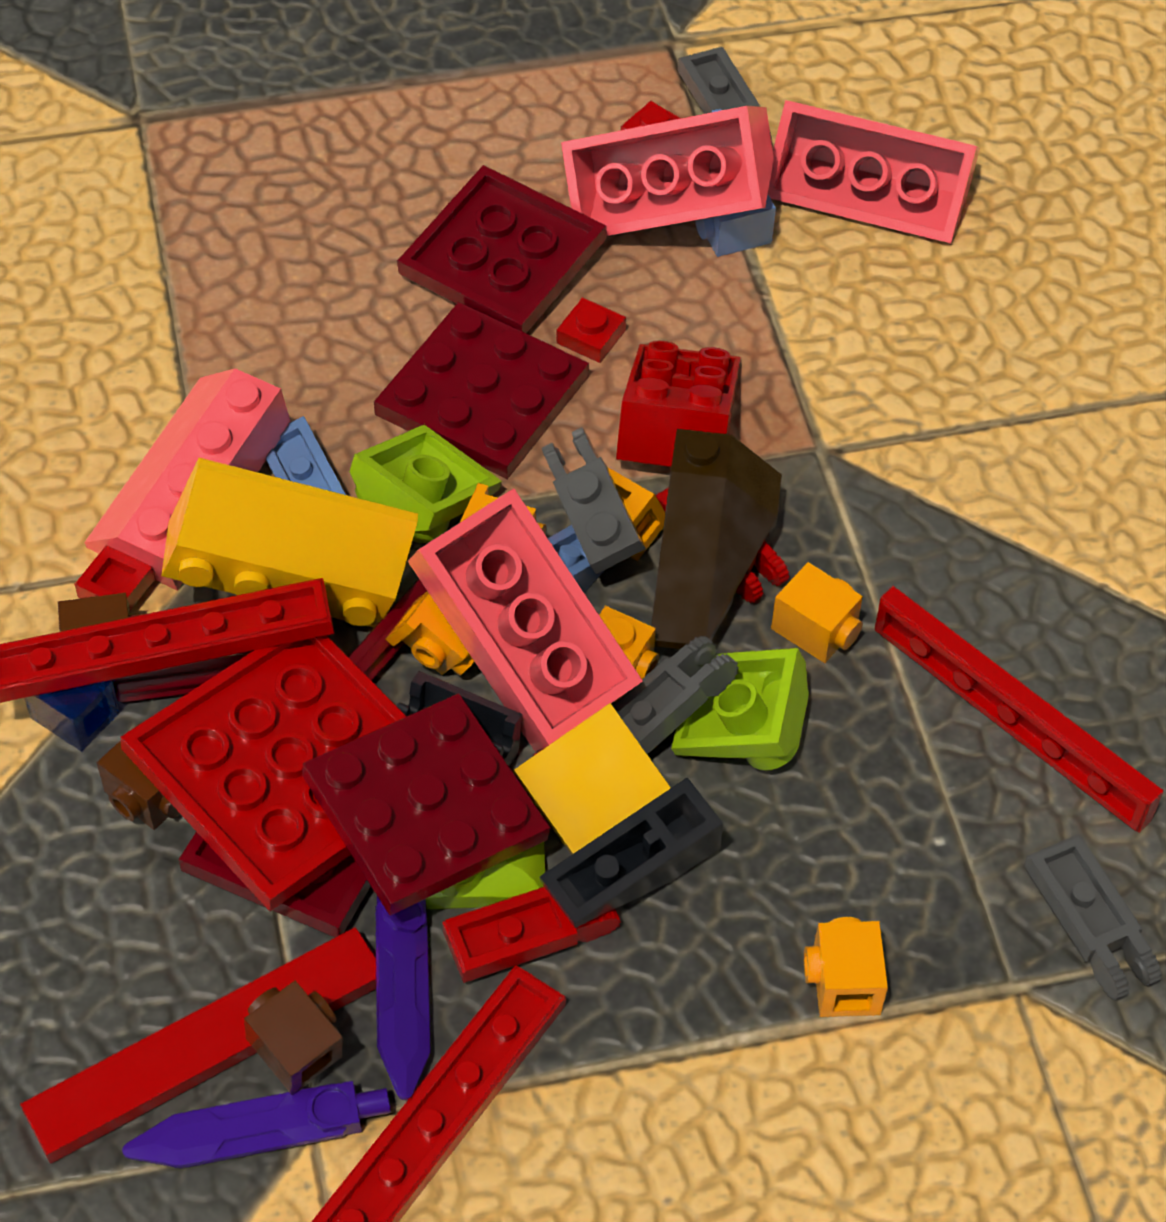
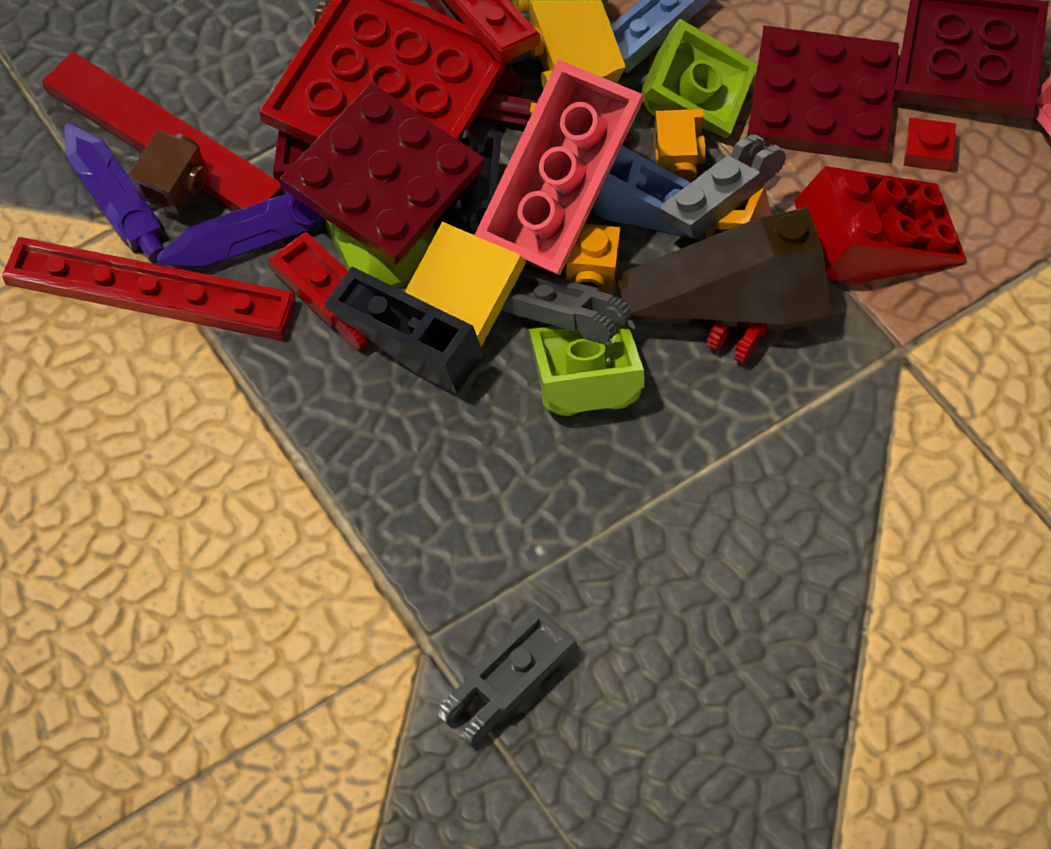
camera: 70 degrees right, 5 degrees up
(817, 613) = (711, 388): light orange brick -> none
(847, 968) = (379, 506): light orange brick -> none
(1018, 710) = (682, 563): red tile -> none

